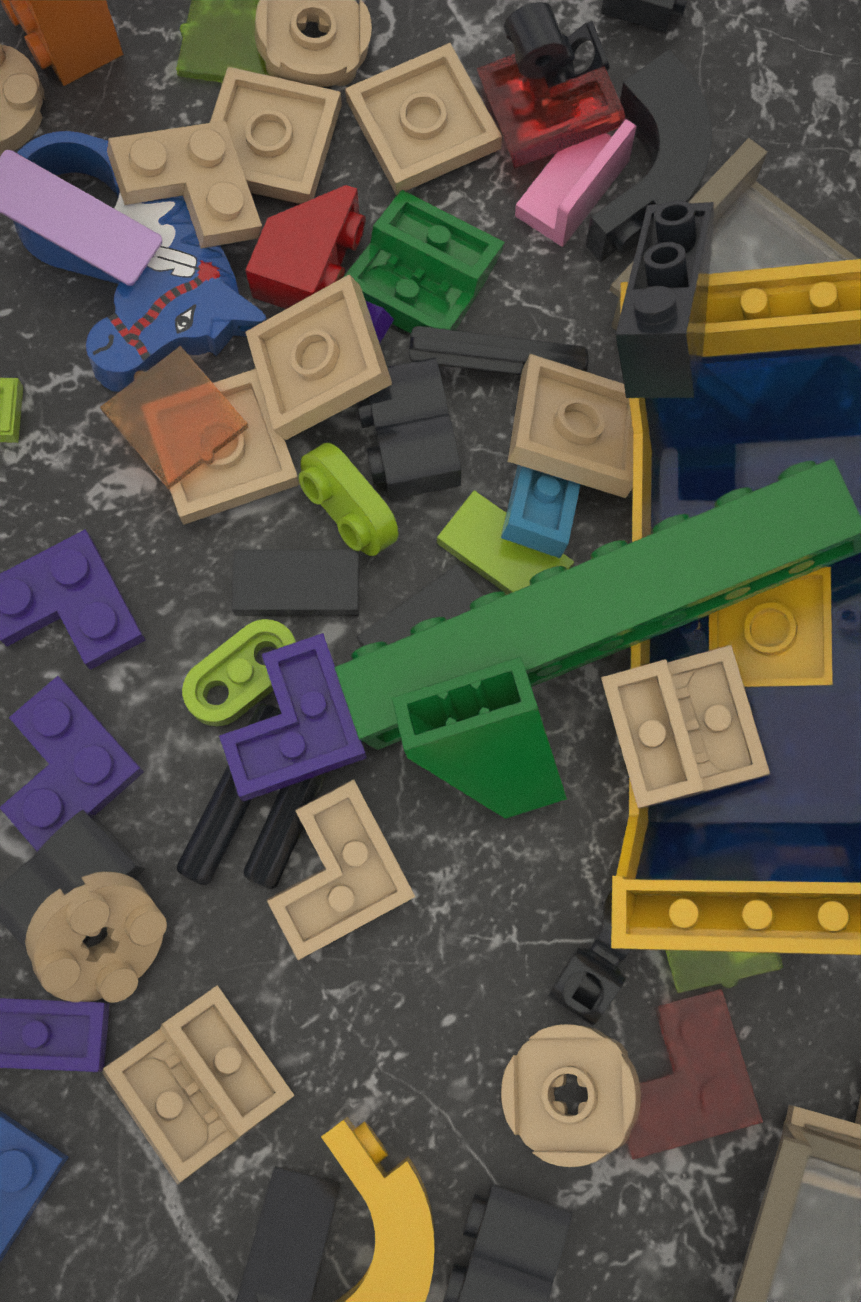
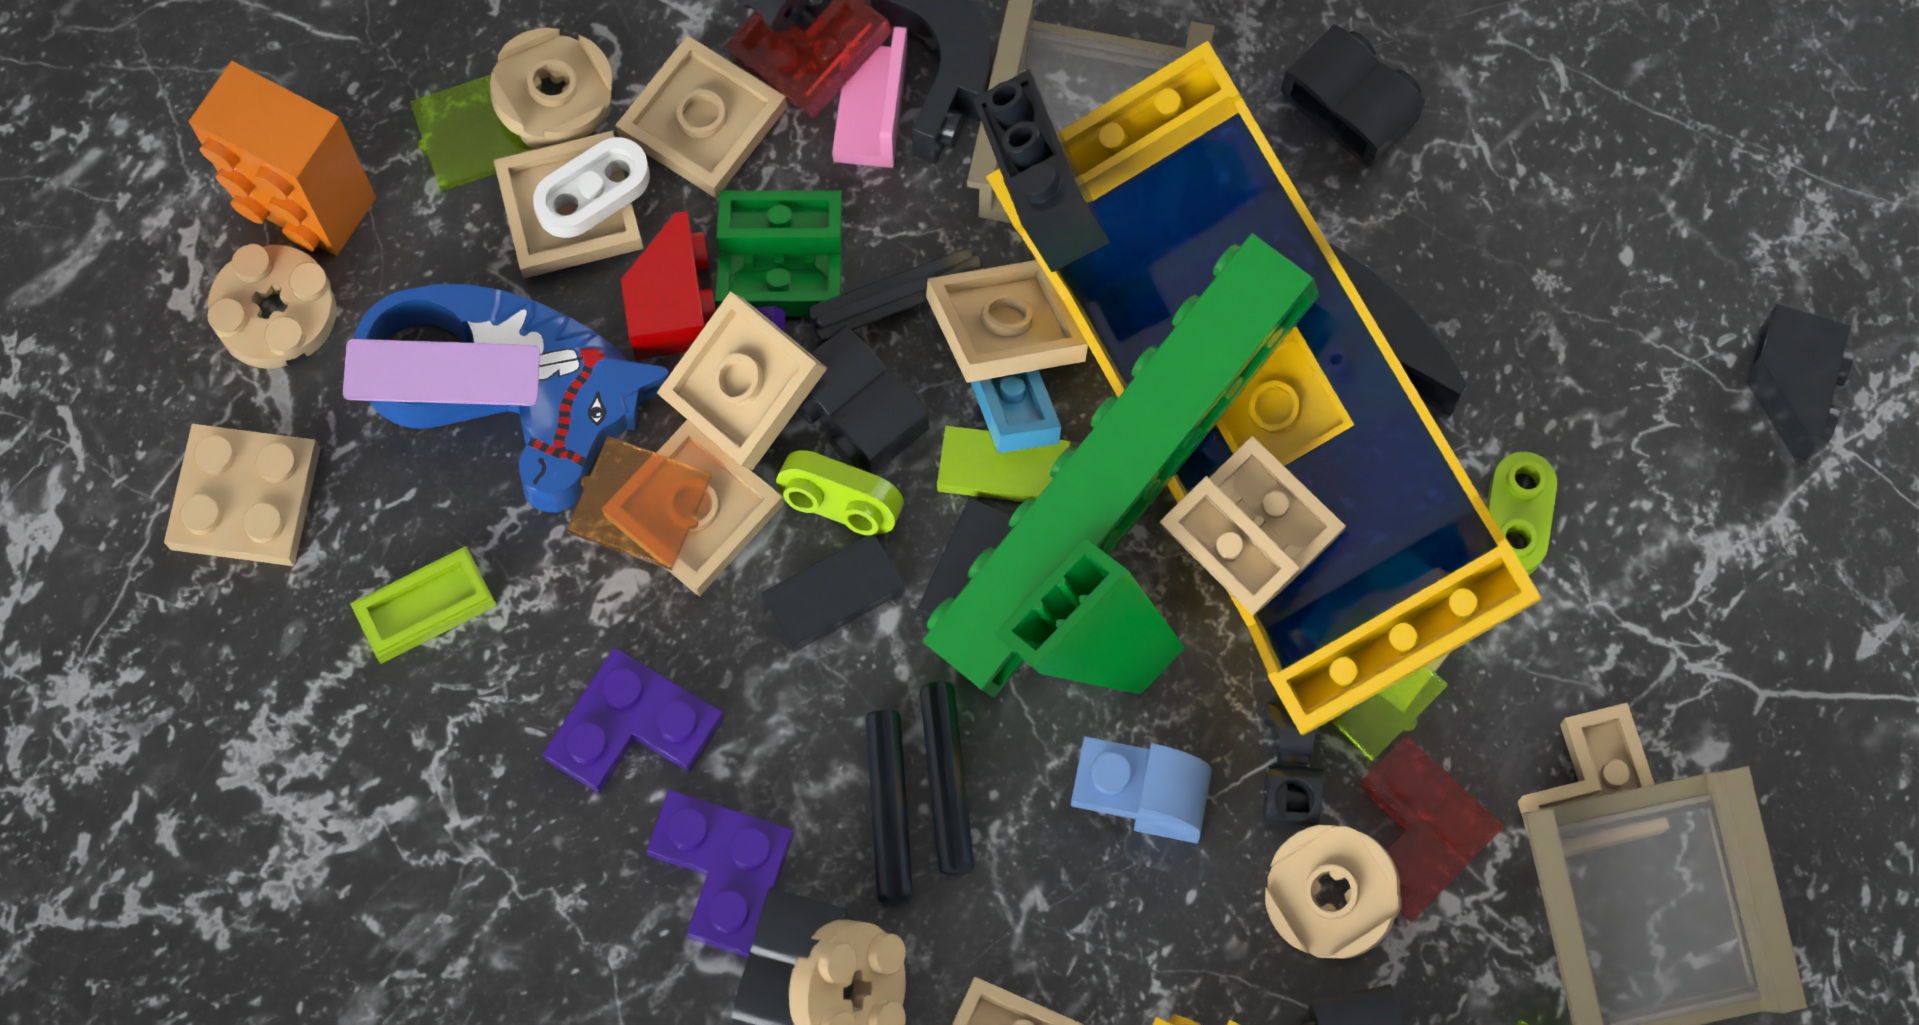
camera: 30 degrees left, 5 degrees down
(191, 164) = (533, 266): tan plate -> none
(236, 669) = (833, 699): lime plate -> none
(289, 123) = (588, 186): none -> white plate
(309, 735) = (931, 706): dark purple plate -> none
(358, 876) = (1039, 815): tan plate -> none
(454, 903) = (1154, 786): none -> medium blue brick

